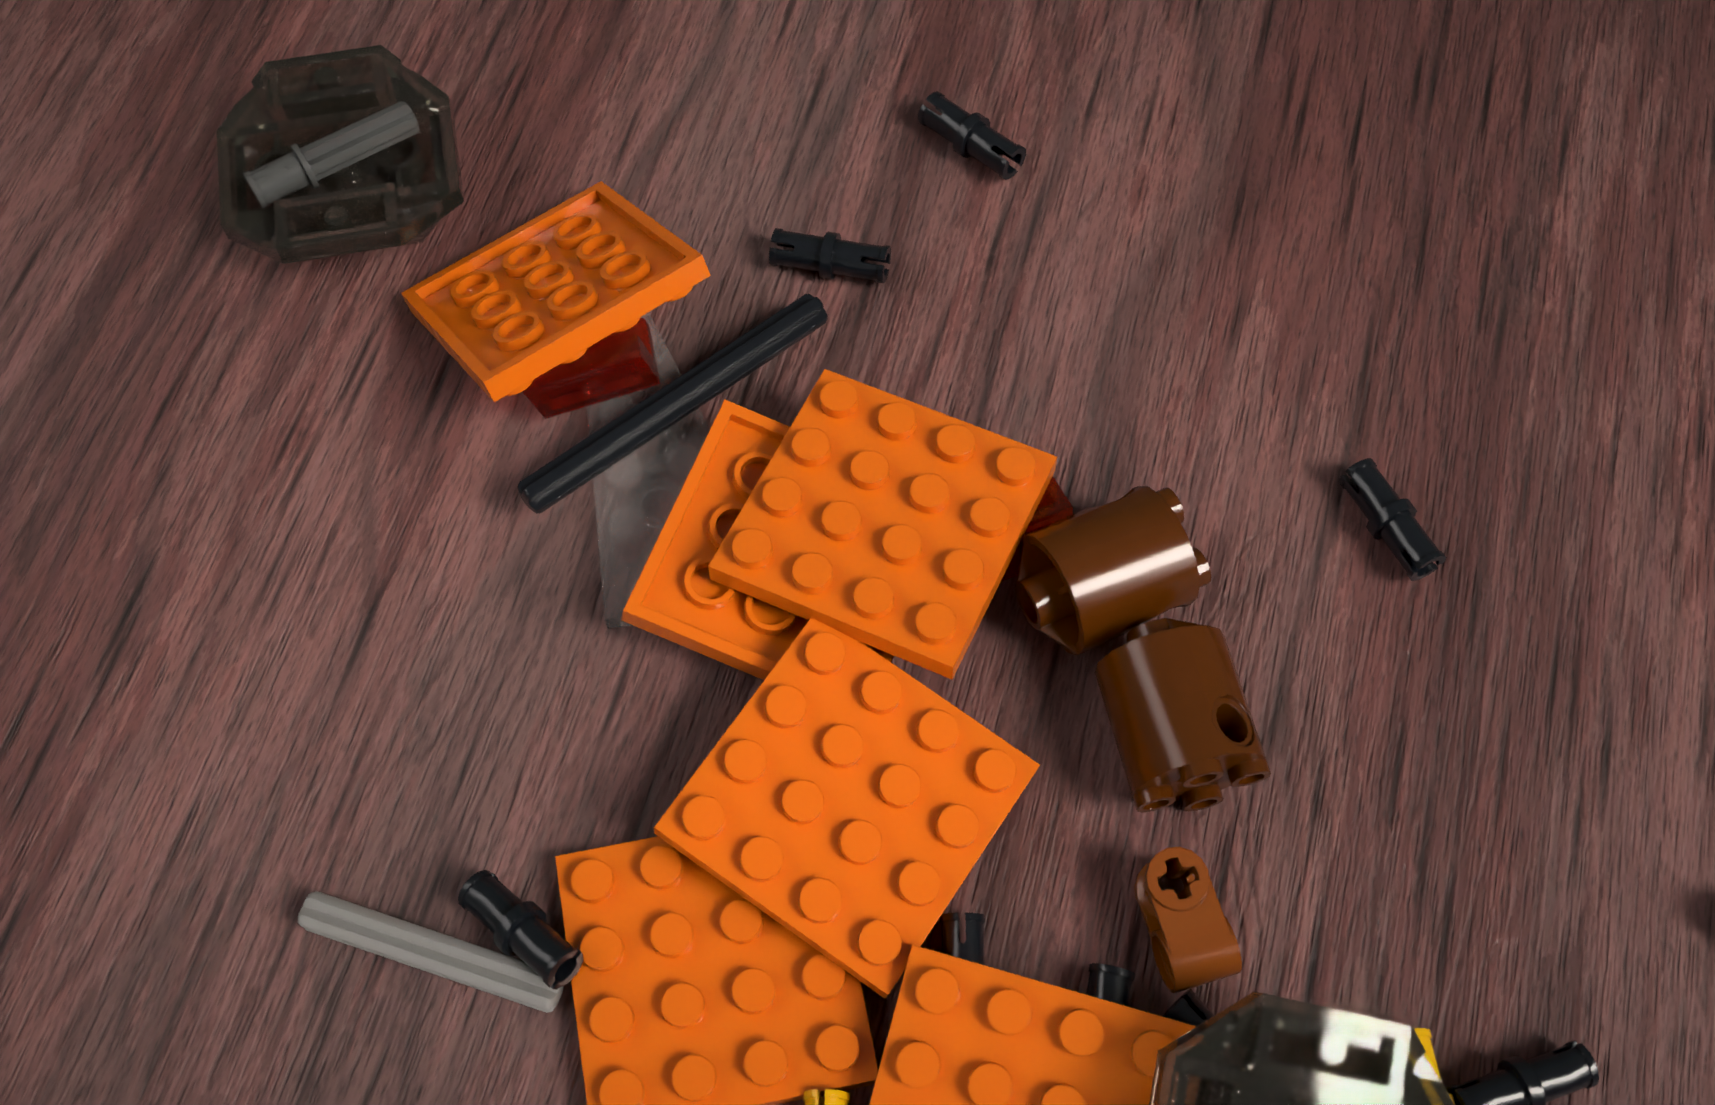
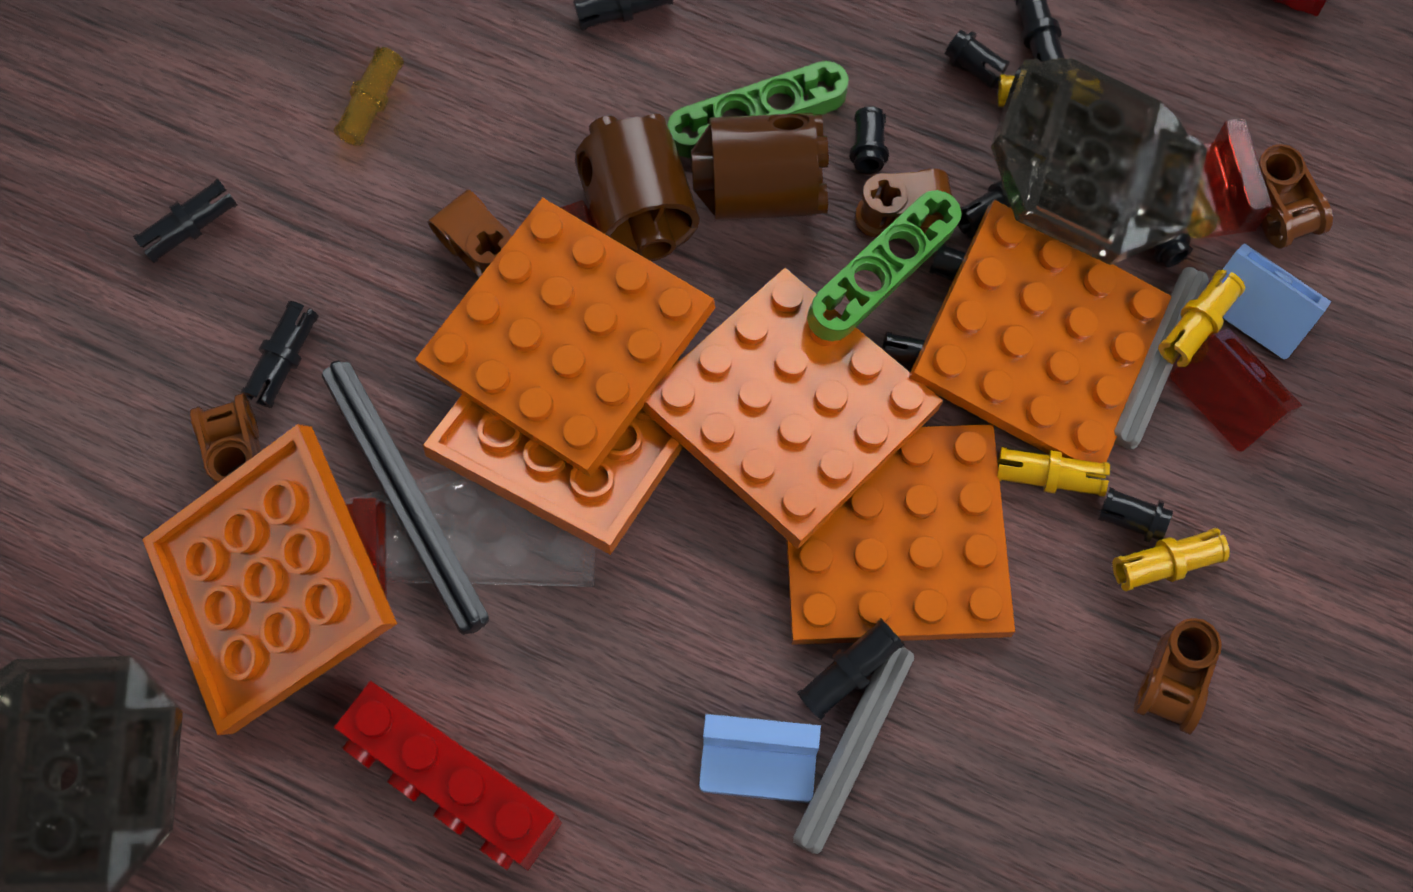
camera: 80 degrees left, 5 degrees up
(331, 153) = (67, 795): dark grey axle -> none
(361, 511) = (449, 775): none -> red brick
(410, 840) = (759, 758): none -> light blue panel
(720, 228) = (226, 435): none -> dark orange piece
(1021, 404) = (470, 231): none -> dark orange piece
(1055, 894) = (881, 261): none -> bright green beam
(1174, 271) = (368, 96): none -> clear yellow pin
(1272, 859) = (869, 151): none -> black pin
(1293, 705) = (754, 100): none -> bright green beam
(1449, 992) = (973, 56): none -> black pin

